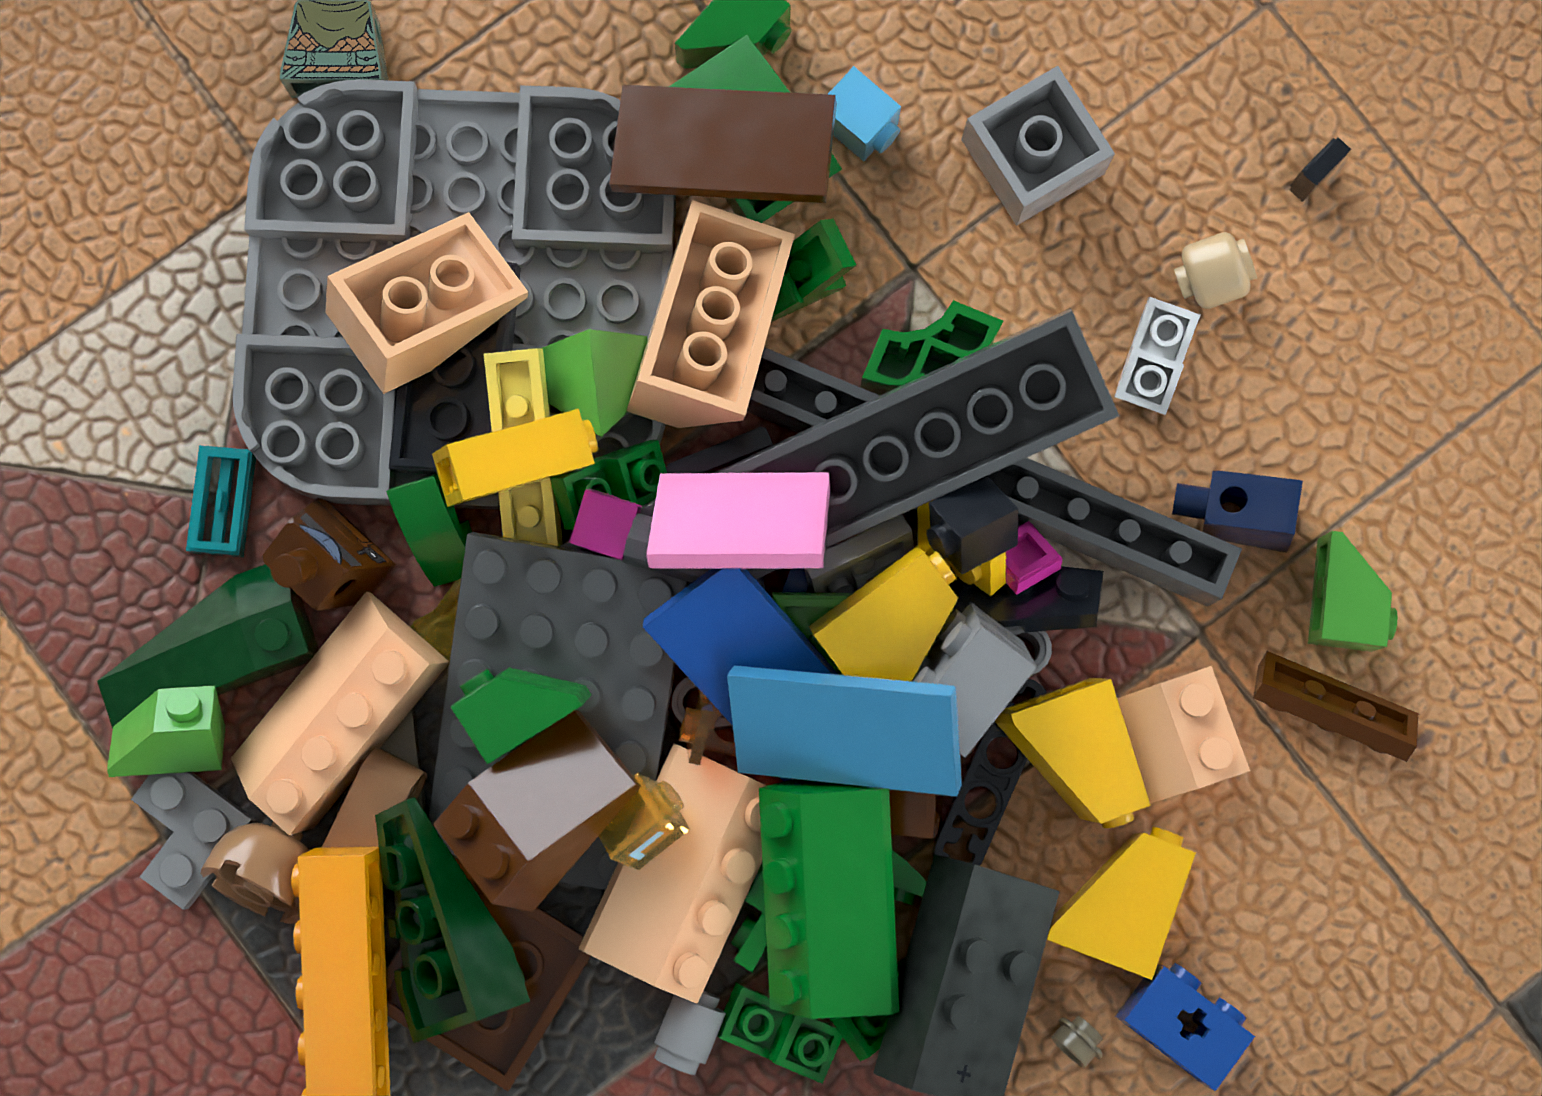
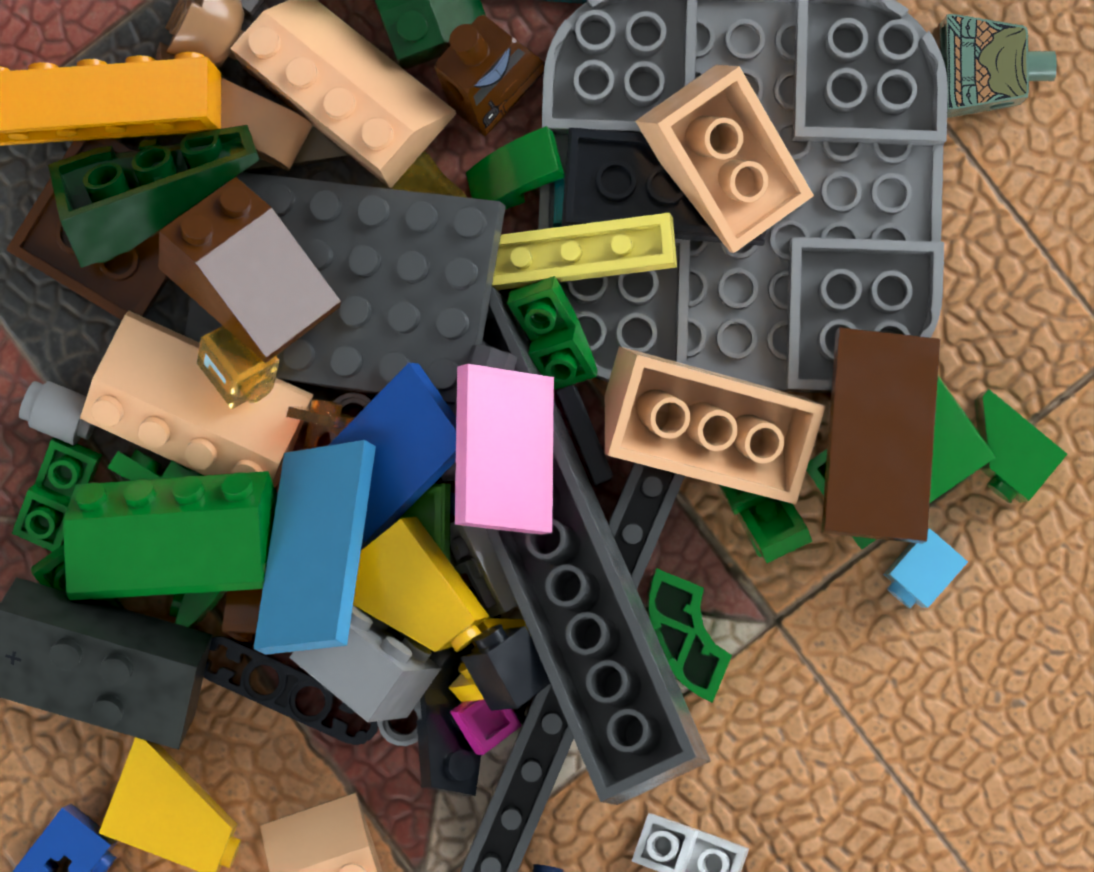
camera: 90 degrees right, 5 degrees up
(513, 708) = (340, 248): green slope -> none
(515, 456) = (567, 243): yellow slope -> none
(594, 374) = (652, 315): bright green slope -> none
(604, 523) = (510, 327): dark pink tile -> none
(1037, 145) = (892, 740): light grey brick -> none
(1078, 1040) = (47, 767): dark tan plate -> none
(1081, 749) = (310, 773): yellow slope -> none

